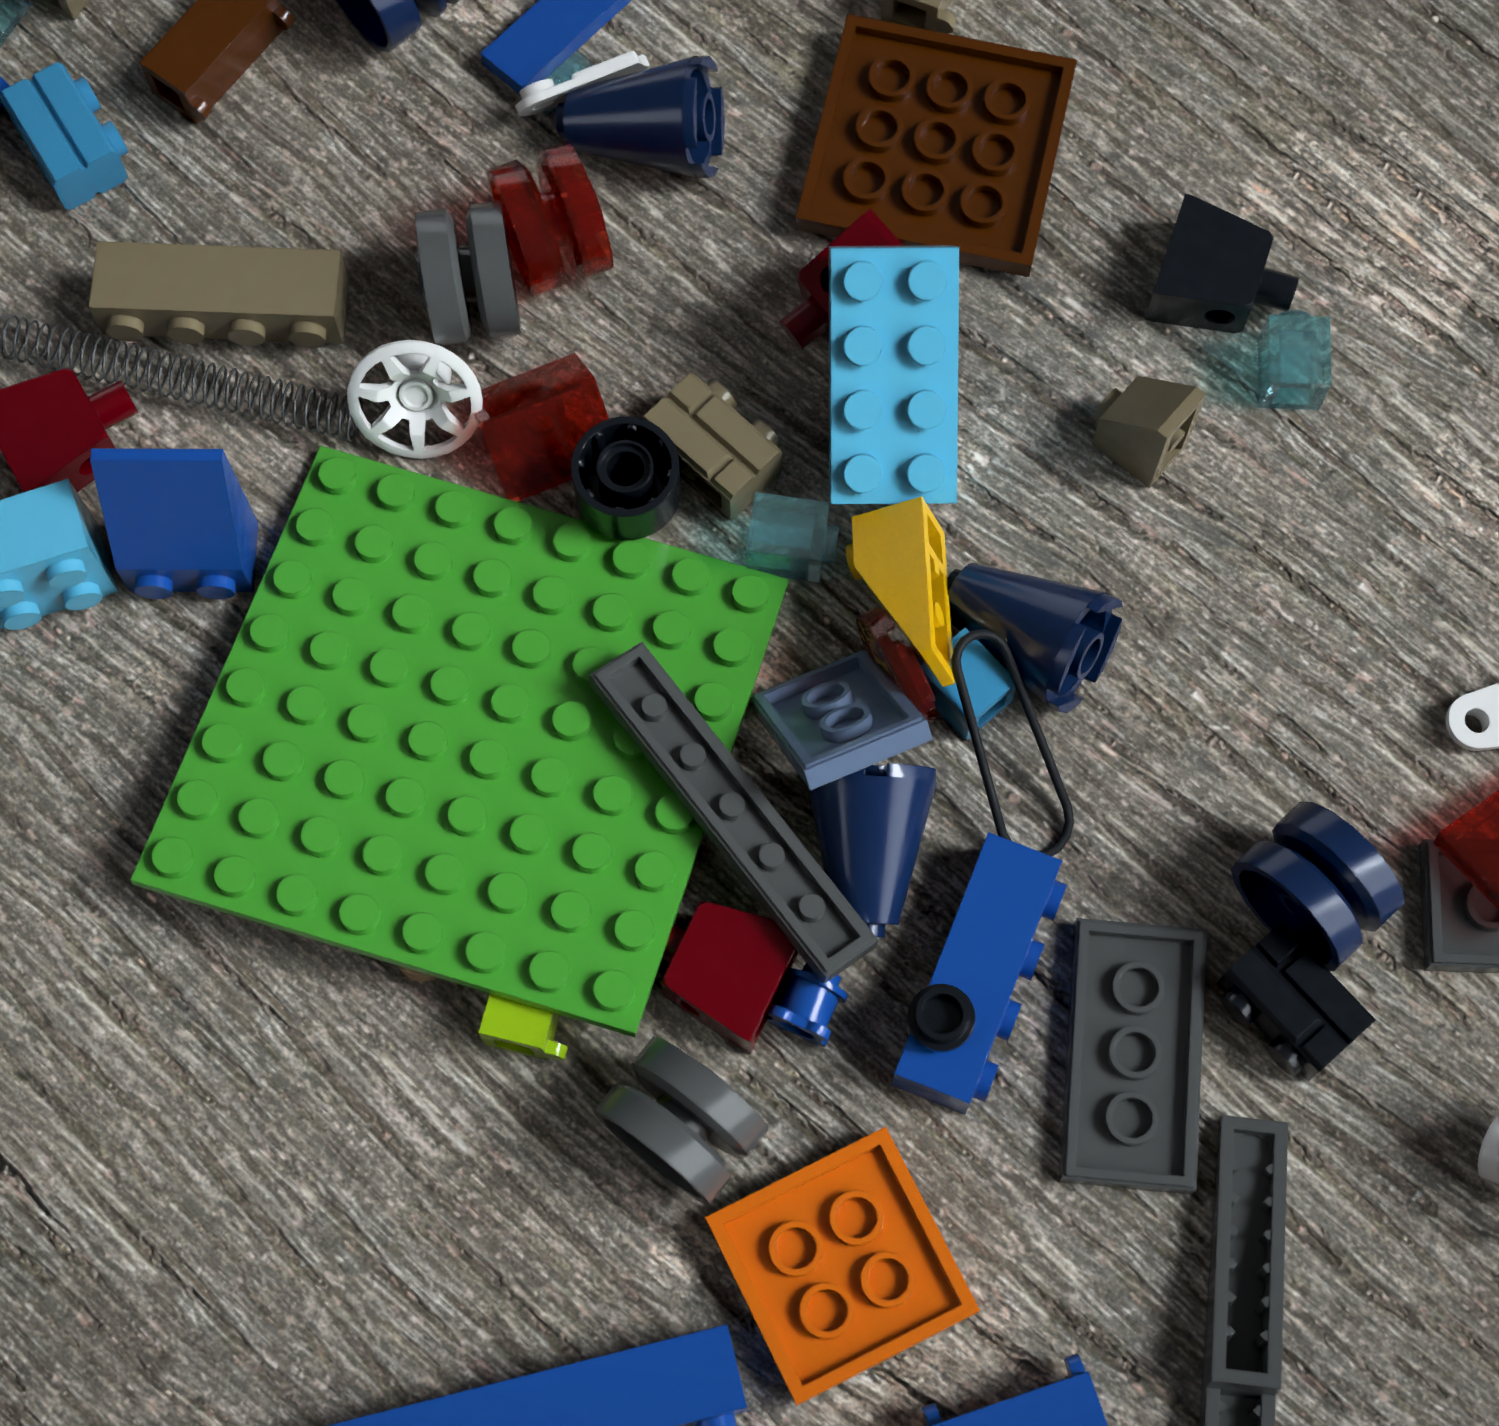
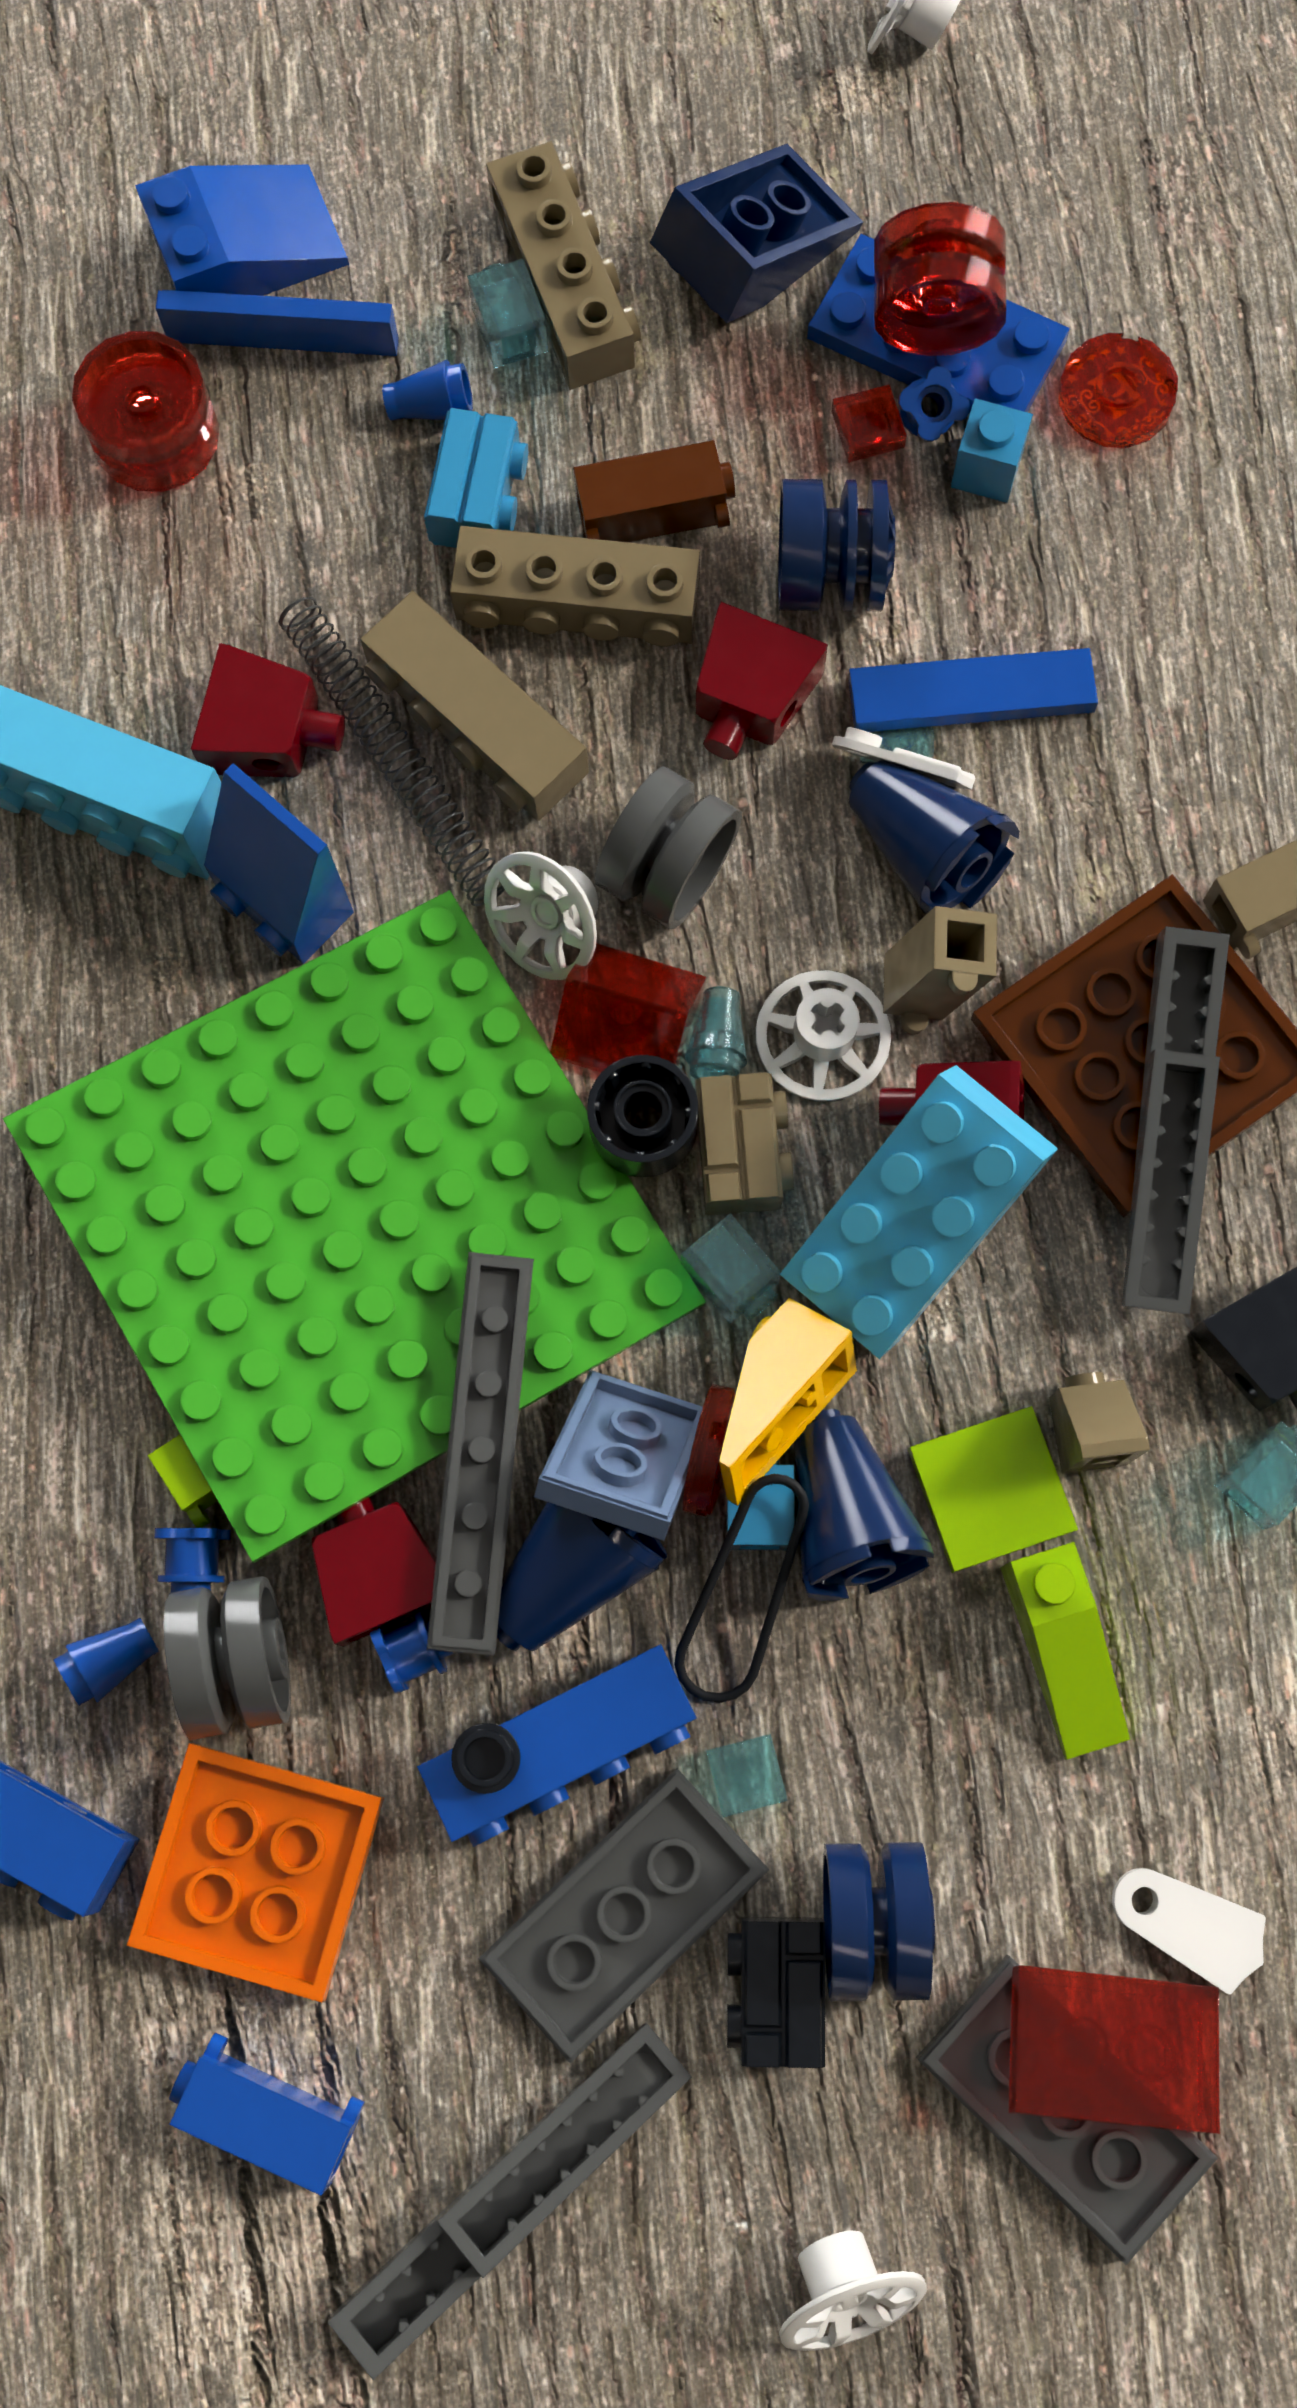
camera: 45 degrees right, 5 degrees up
(216, 149) = (575, 585): none -> dark tan brick
(414, 114) = (754, 679): none -> dark red torso
(558, 216) = (763, 853): clear red wheel -> none
(577, 1082) = (191, 1556): none -> blue brick
(581, 1220) = (104, 1660): none -> blue cone
(623, 382) = (718, 1036): none -> clear light blue cone
(698, 319) = (825, 1032): none -> white wheel
(746, 197) = (939, 965): none -> dark tan brick
(1005, 172) = (1175, 1119): none -> dark grey slope
(1113, 535) = (992, 1489): none -> lime tile
(1128, 881) = (746, 1775): none -> clear light blue tile
(1264, 595) = (1067, 1648): none -> lime slope

